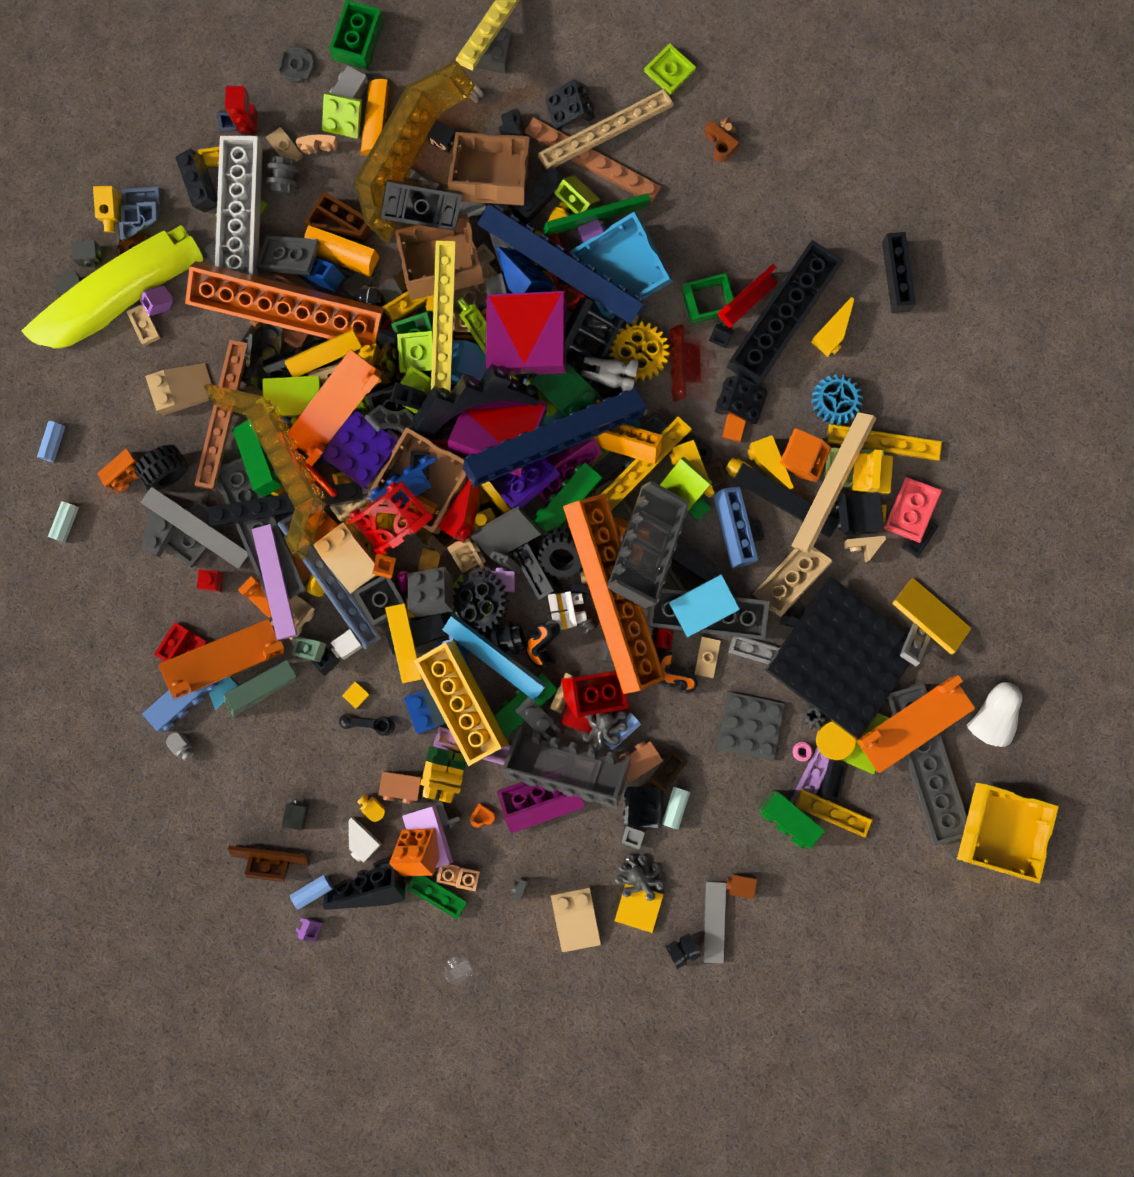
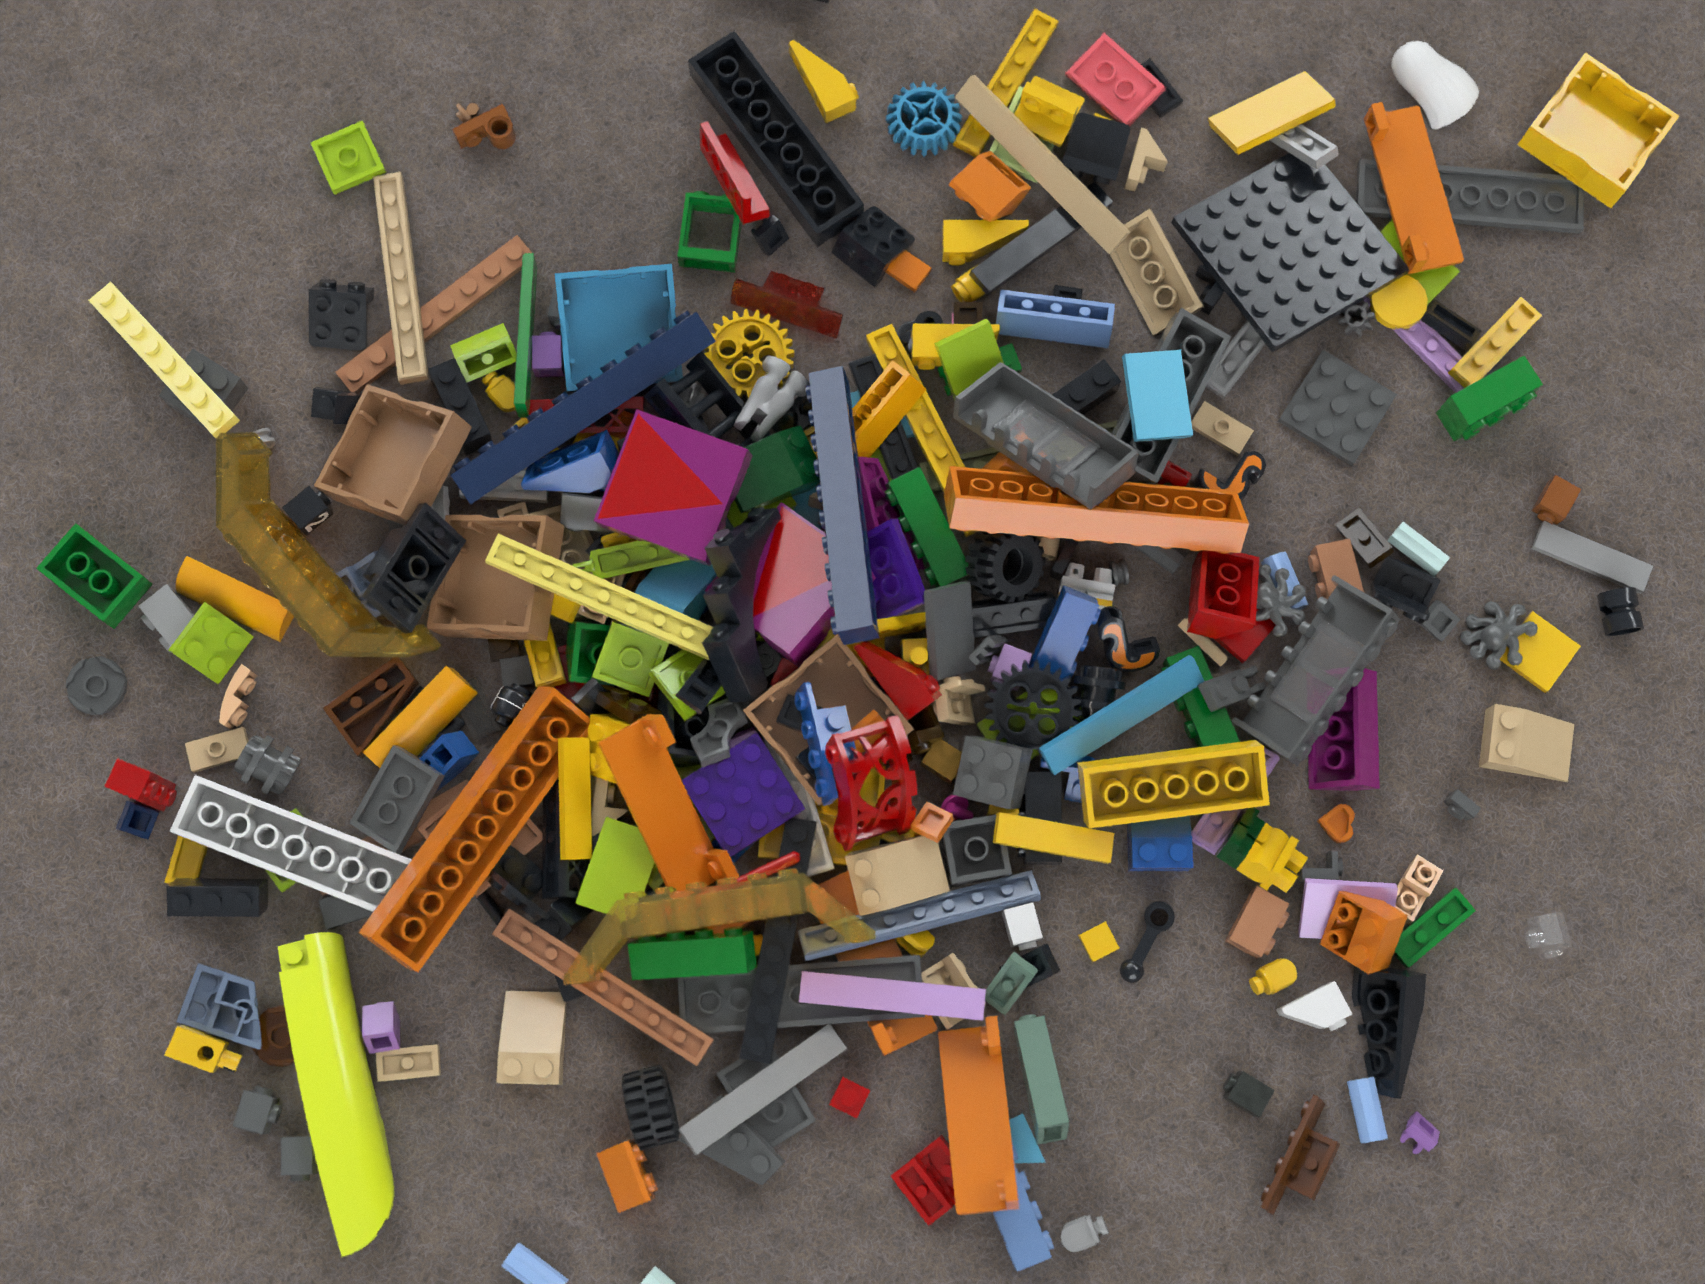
camera: 75 degrees left, 5 degrees down
(534, 605) = (1066, 631): none -> brick
(806, 756) = (1402, 346): bright pink plate -> none

